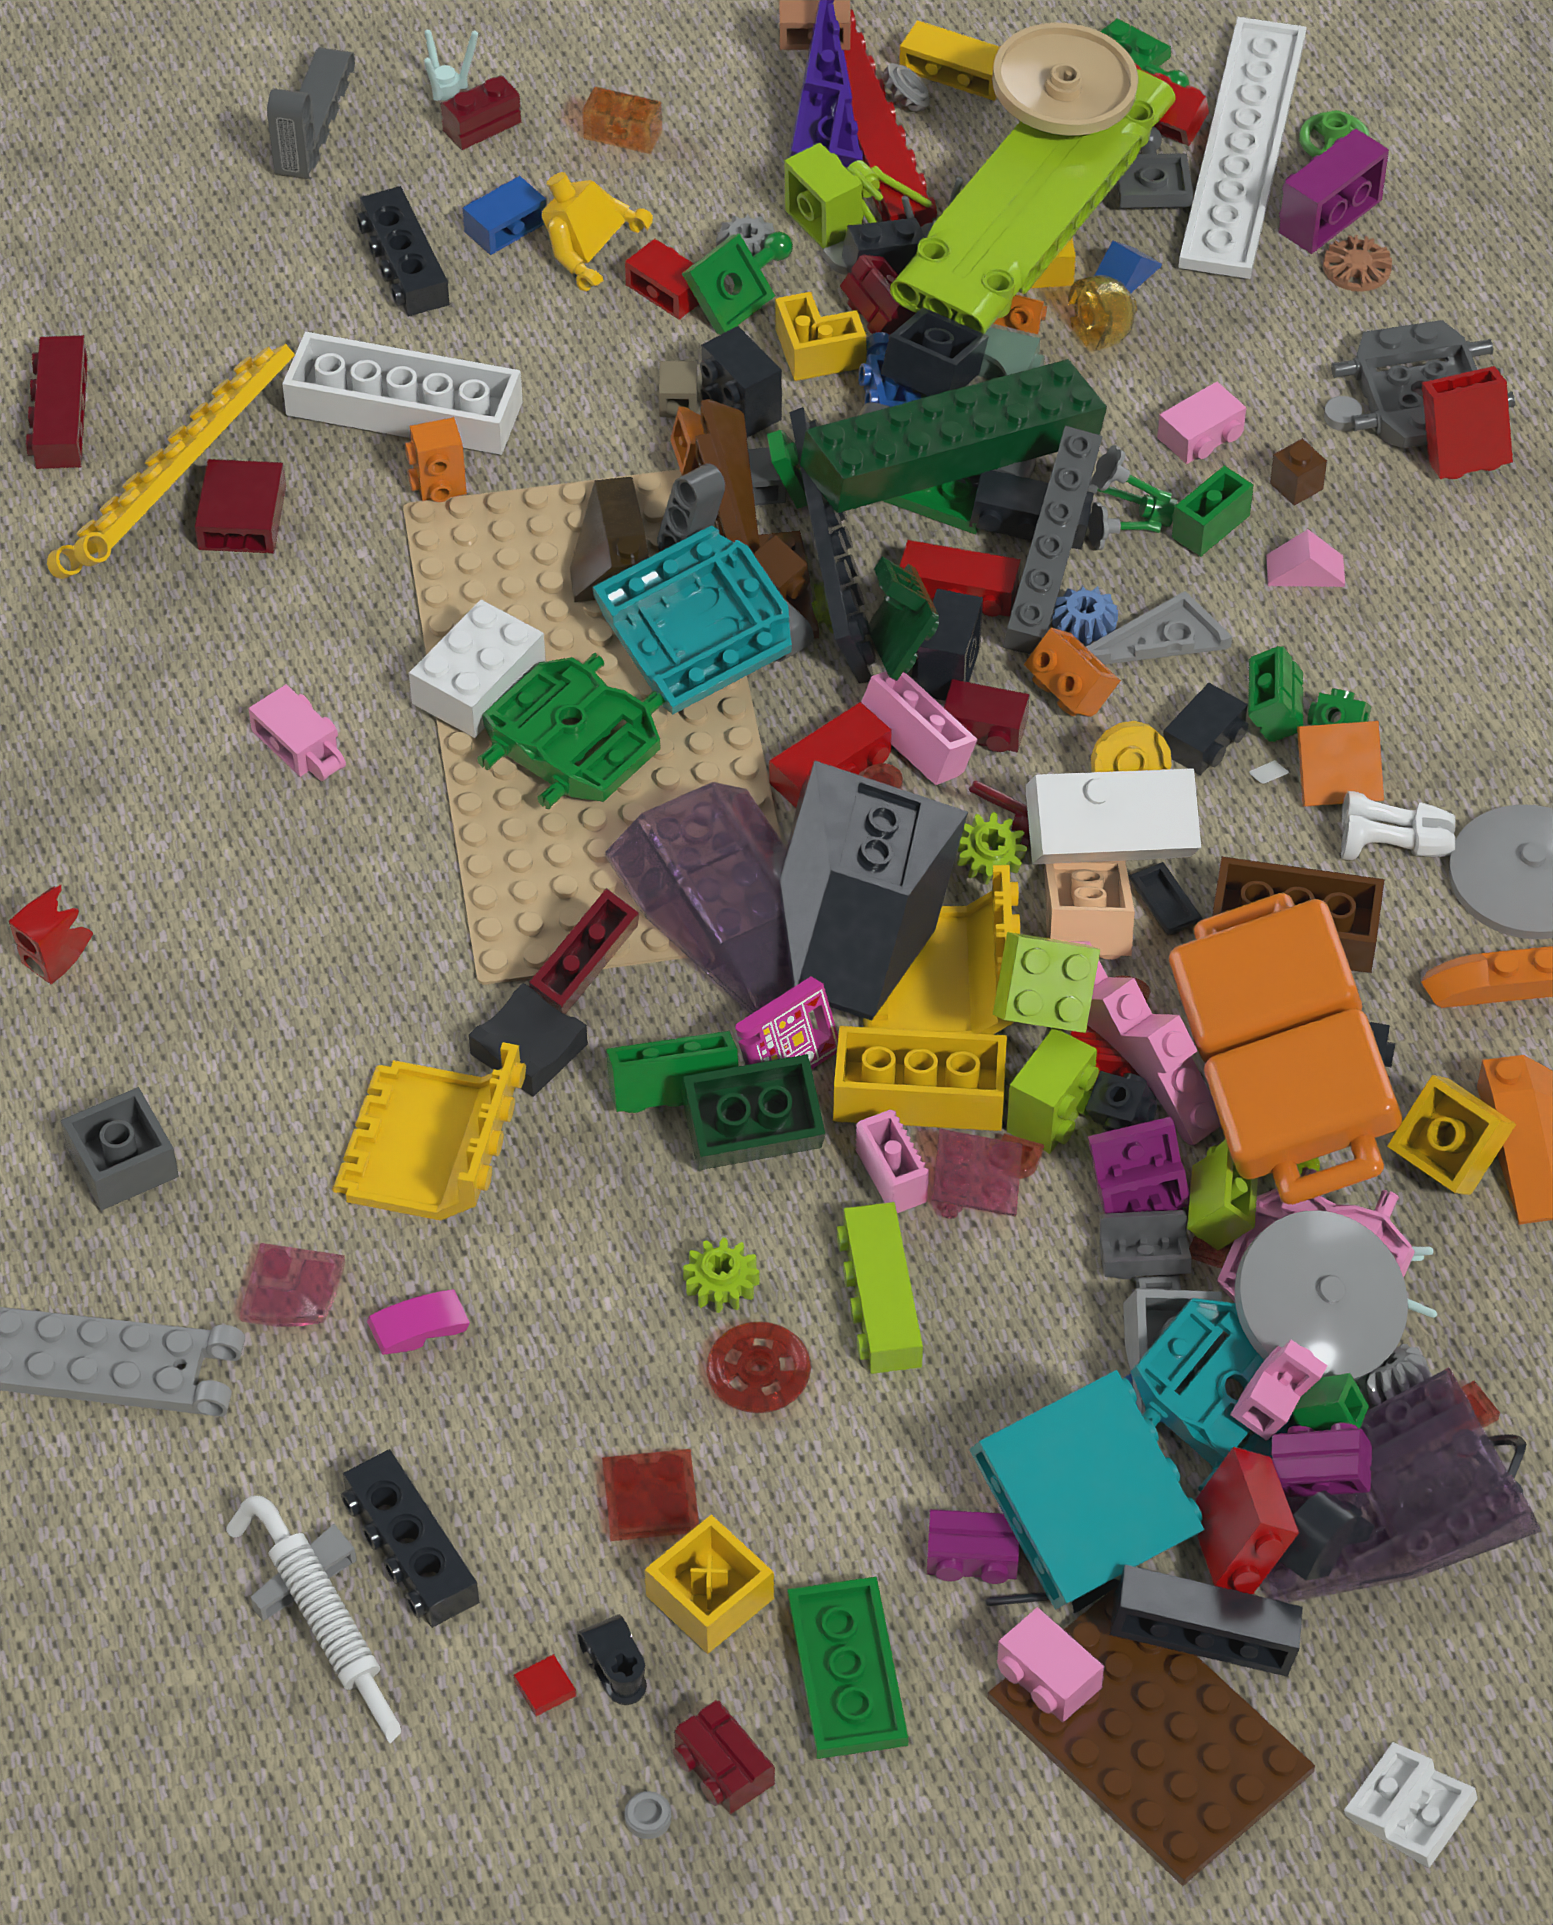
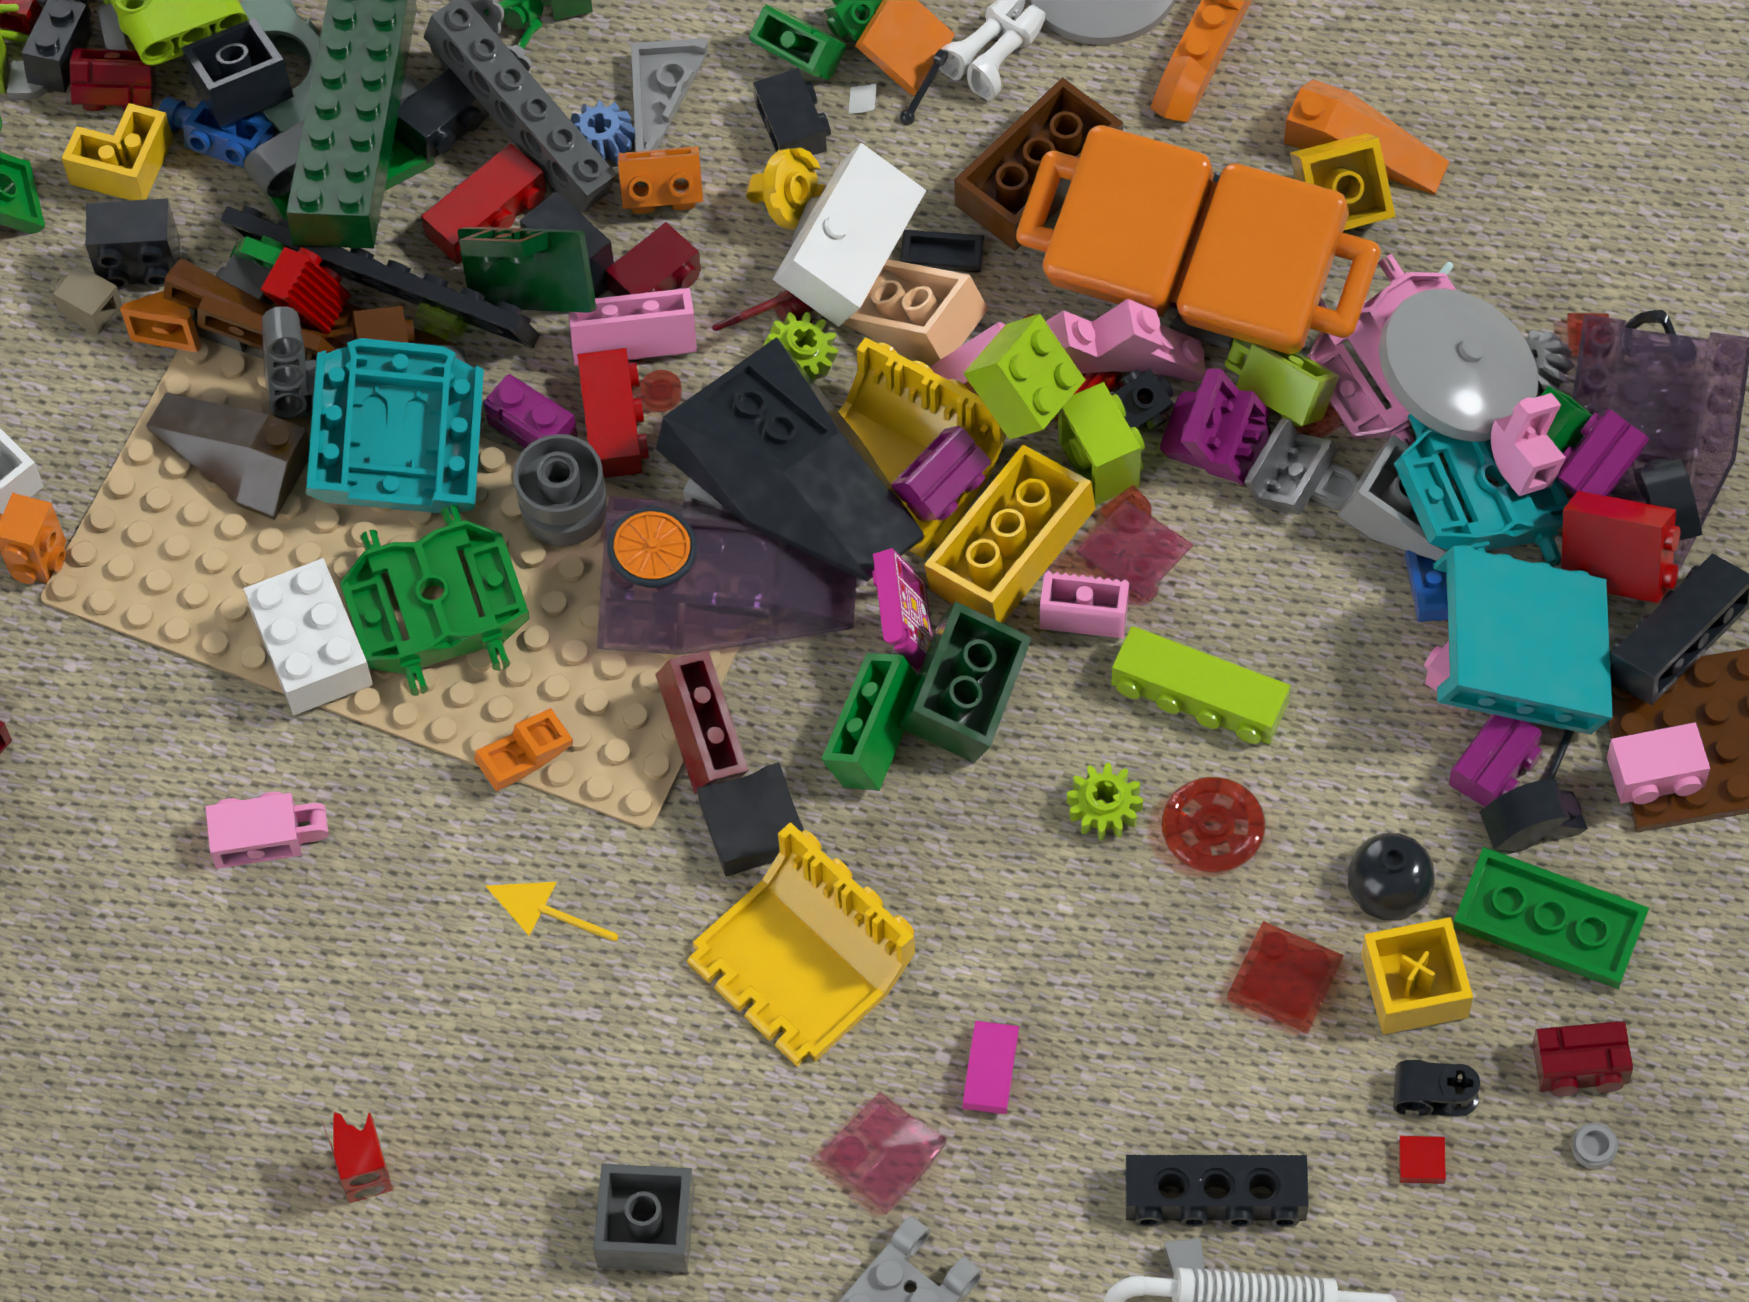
camera: 55 degrees left, 10 degrees up
(358, 937) = (529, 900): none -> yellow piece
(480, 860) = (523, 752): none -> orange slope
(701, 825) = (651, 547): none -> orange wheel
(723, 745) = (560, 490): none -> dark grey wheel
(774, 498) = (307, 288): none -> red brick
(783, 706) = (525, 413): none -> magenta brick
(802, 1524) = (1391, 876): none -> black cylinder
(935, 995) = (941, 475): none -> magenta brick
(935, 1593) = (1530, 813): none -> black brick
(1339, 794) = (907, 116): none -> black hinge

